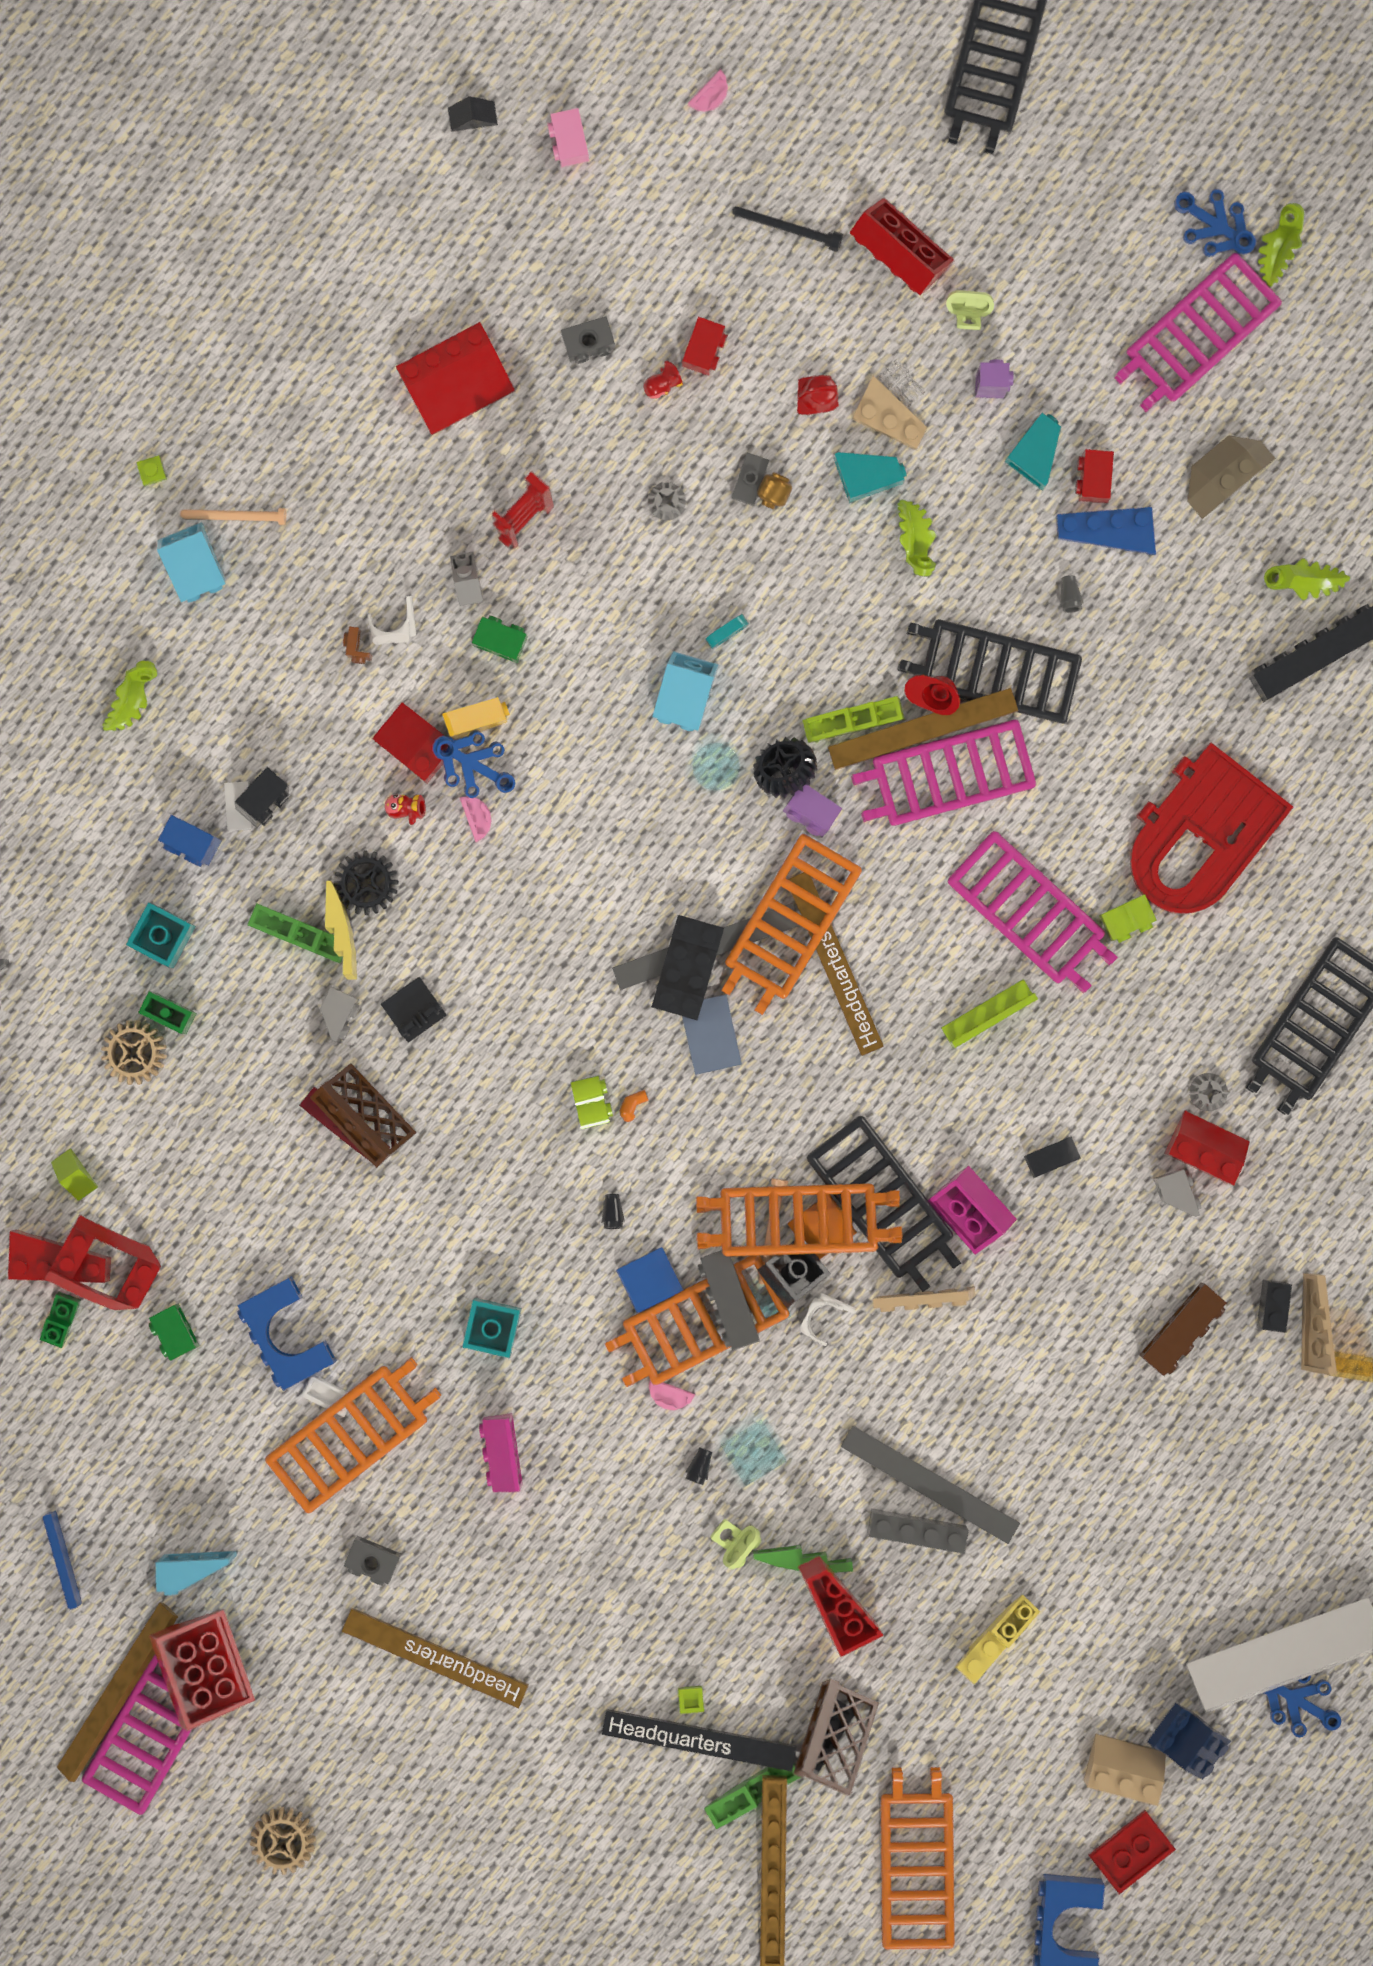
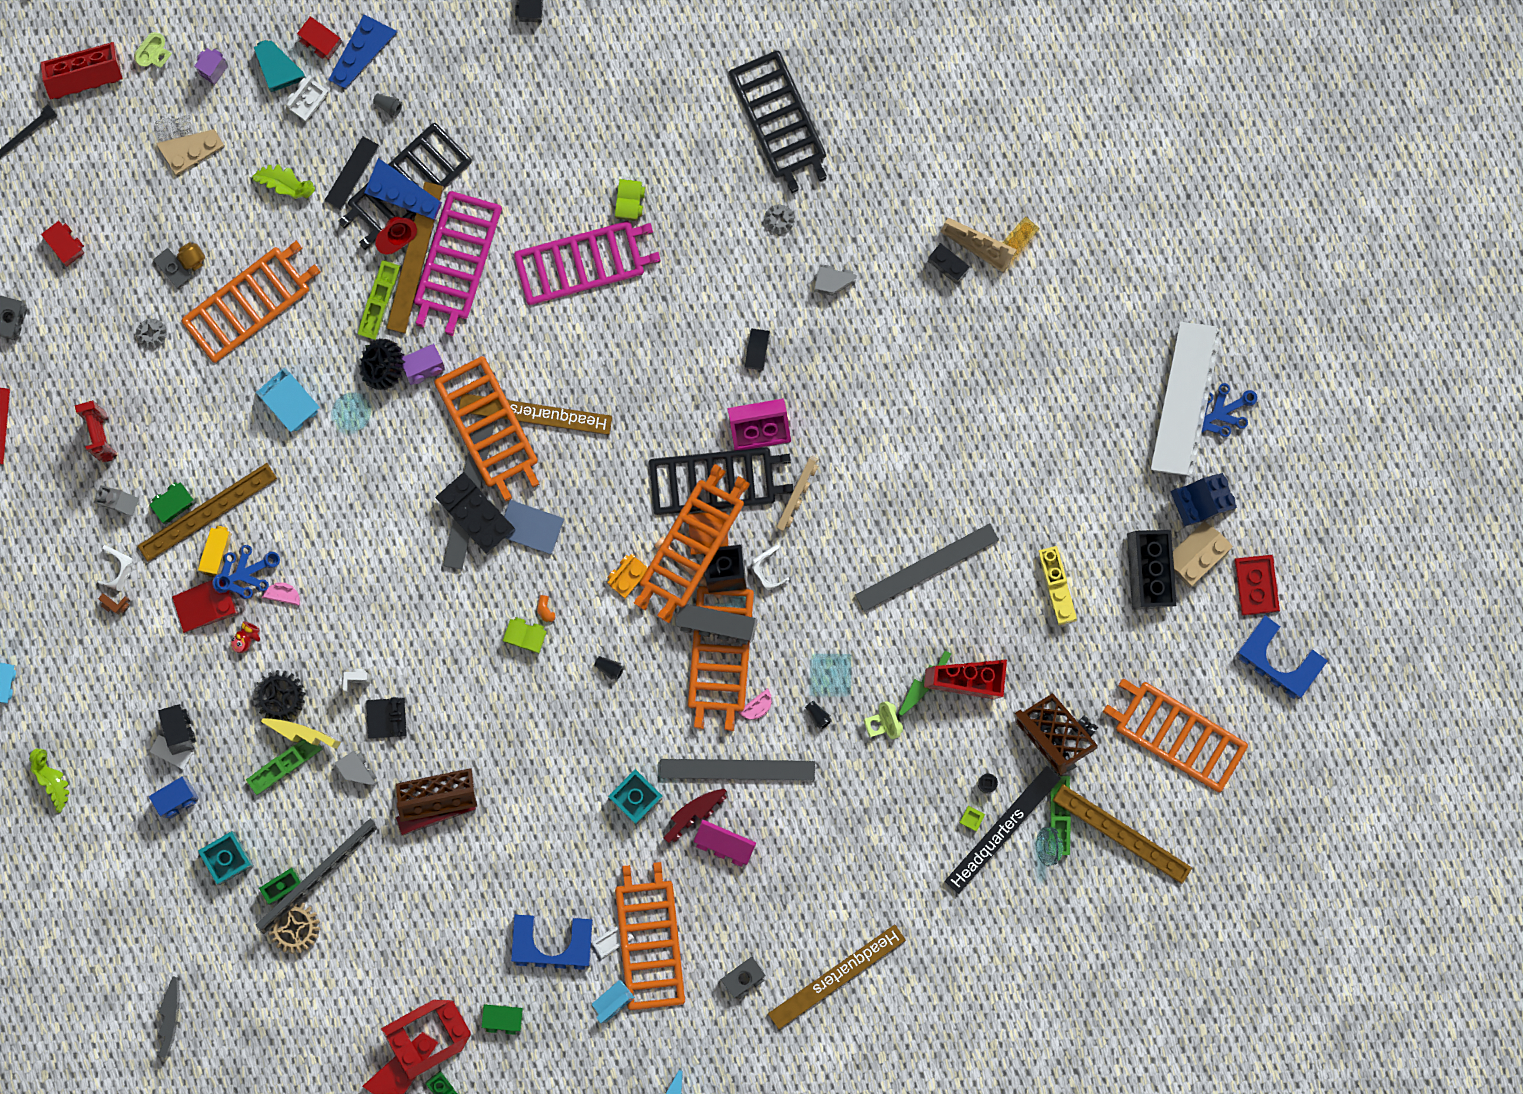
camera: 60 degrees left, 5 degrees down
(73, 1175) = (351, 1021): lime slope -> none
(198, 1044) = (316, 876): none -> dark grey tile
(262, 1437) = (612, 1001): none -> medium azure panel
(436, 952) = (355, 676): none -> white bracket
(514, 682) = (207, 512): none -> pearl gold tile
(524, 1402) = (700, 807): none -> dark red slope
(589, 1416) = (737, 769): none -> dark grey tile
(649, 1280) = (670, 671): blue slope -> none
(661, 384) = (69, 286): red animal -> none
(710, 1803) = (1049, 846): none -> clear light blue tile
(722, 1171) = (627, 576): none -> light orange bracket
(727, 631) = (265, 347): teal beam -> none
(735, 1691) = (987, 783): none -> black wheel
(749, 608) = (259, 322): none -> orange bar
(816, 395) = (144, 188): red piece -> none
(865, 1769) = (1084, 722): none -> black wheel
(868, 474) = (220, 187): teal slope -> none
(917, 1531) = (952, 594): dark grey brick -> none
(971, 603) = (351, 173): none -> black tile
(983, 664) = (398, 190): none -> blue wing
(988, 1013) = (634, 332): lime fence -> none
(1022, 504) = (306, 98): none -> white bracket
(1077, 1730) = (1151, 569): none -> black slope
(1183, 1329) = (926, 333): reddish brown brick -> none
(1208, 1148) = (816, 242): red slope -> none
(1212, 808) = (590, 98): red door -> none

